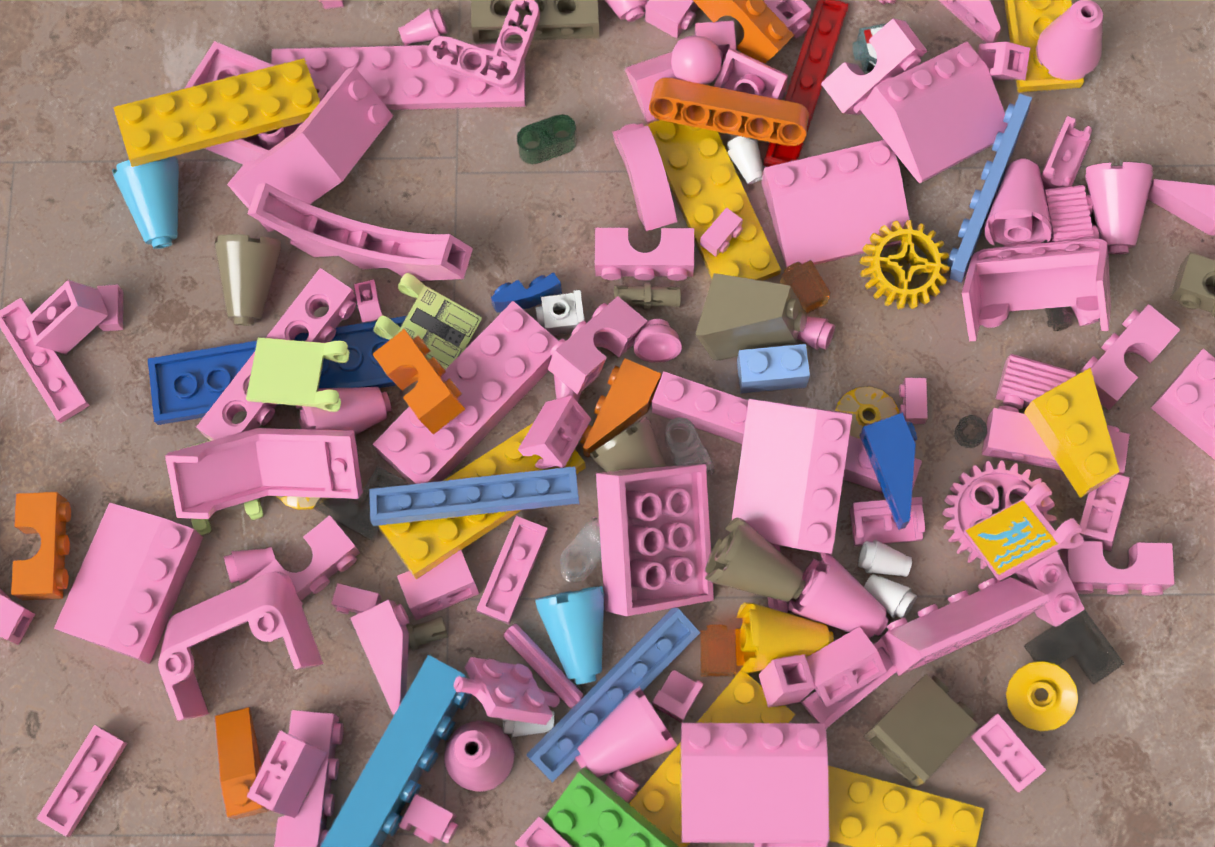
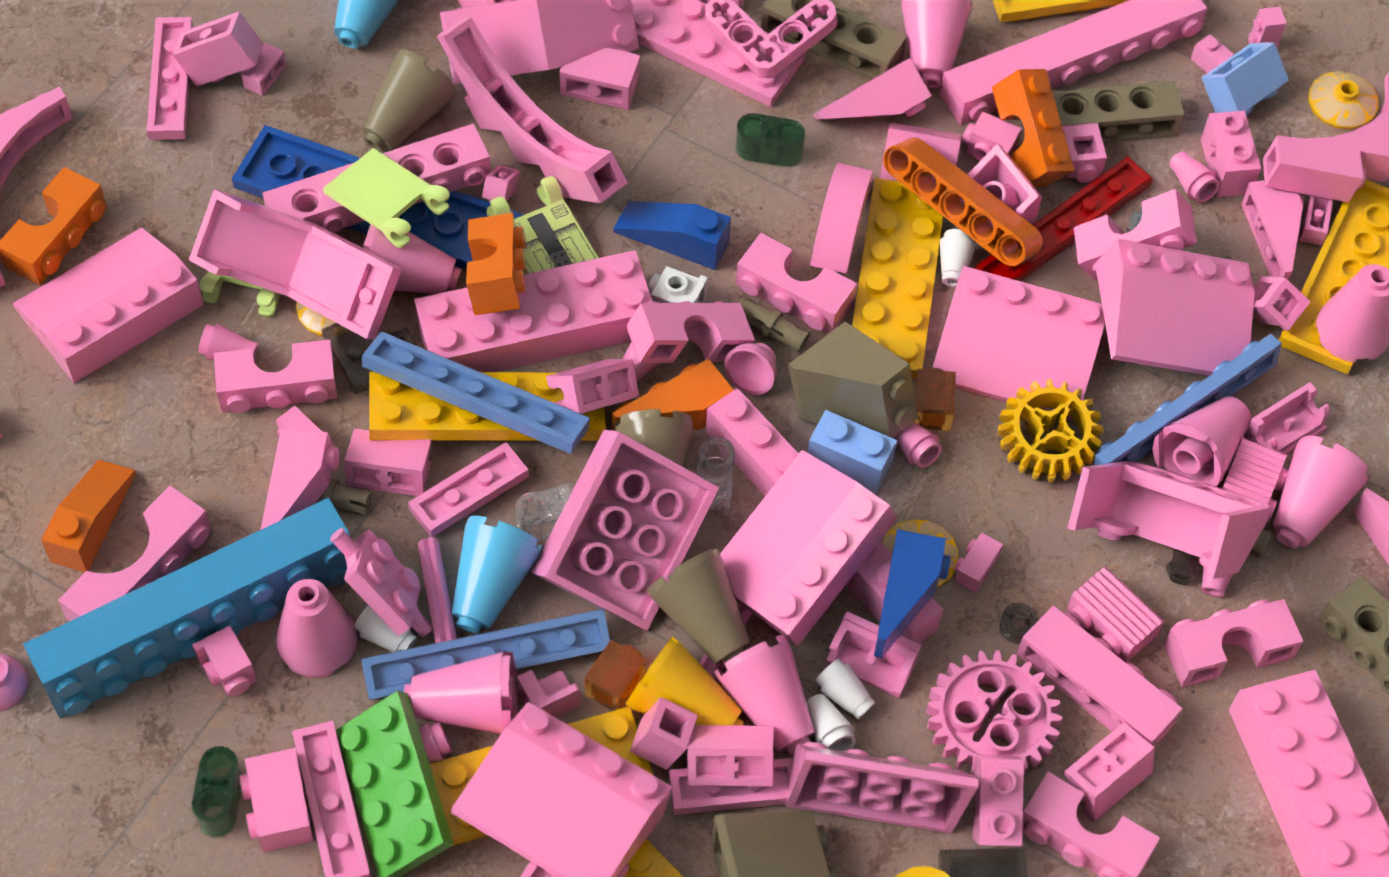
camera: 25 degrees right, 15 degrees down
(272, 613) = (203, 374): bright pink windscreen -> none
(287, 774) = (122, 532): bright pink hinge -> none
(384, 159) = (602, 77): none -> bright pink slope
(523, 258) = (677, 229): none -> blue slope
(526, 298) = (653, 260): blue slope -> none
(610, 50) = (885, 95): none -> bright pink slope
(696, 60) = (960, 139): bright pink hair -> none
(719, 234) = (882, 302): bright pink piece -> none
(1021, 534) = (1002, 729): flag -> none
(1076, 432) = (1119, 665): yellow wedge -> none

